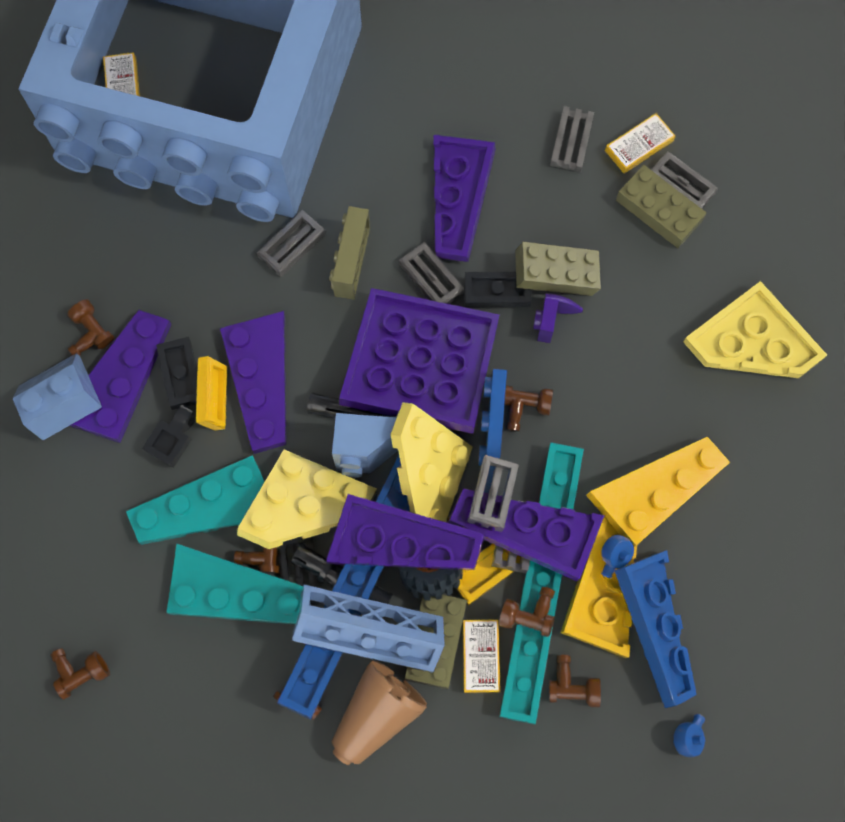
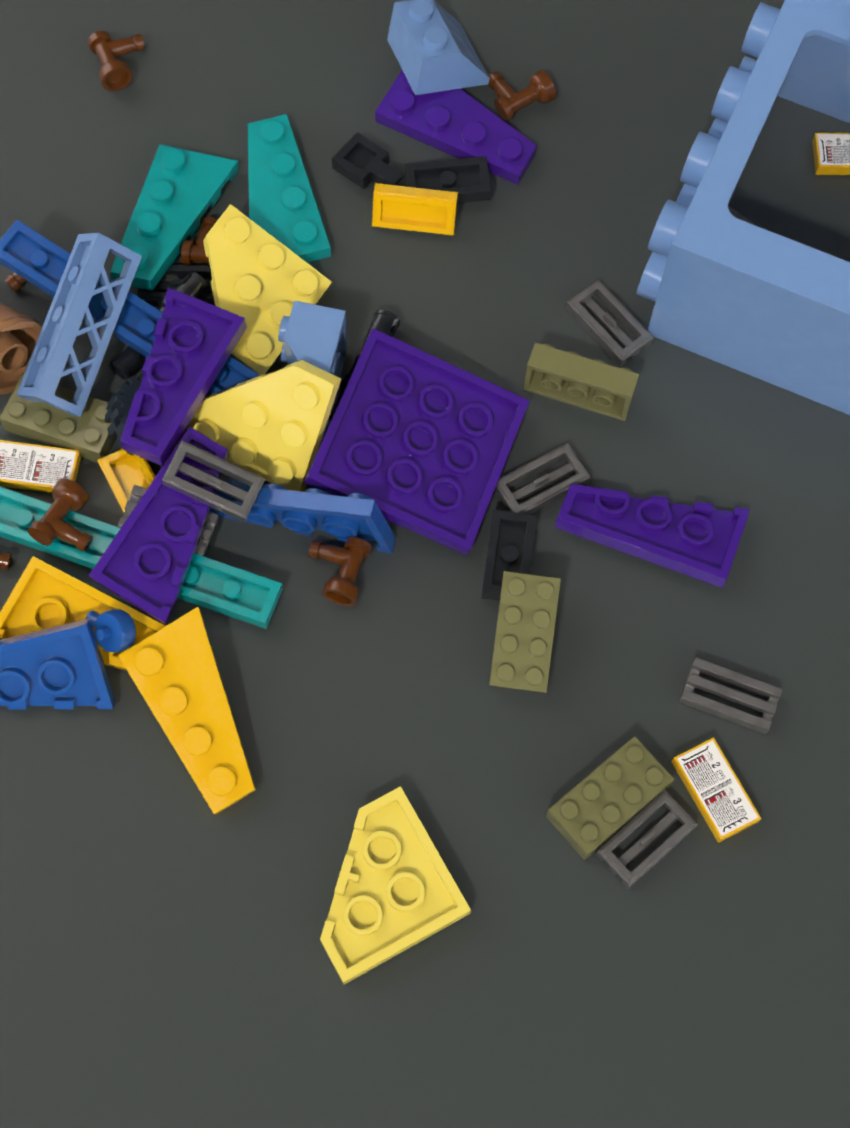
camera: 95 degrees right, 5 degrees down
(258, 371) = (443, 266): dark purple wing -> none
(545, 318) = (459, 611): dark purple plate -> none

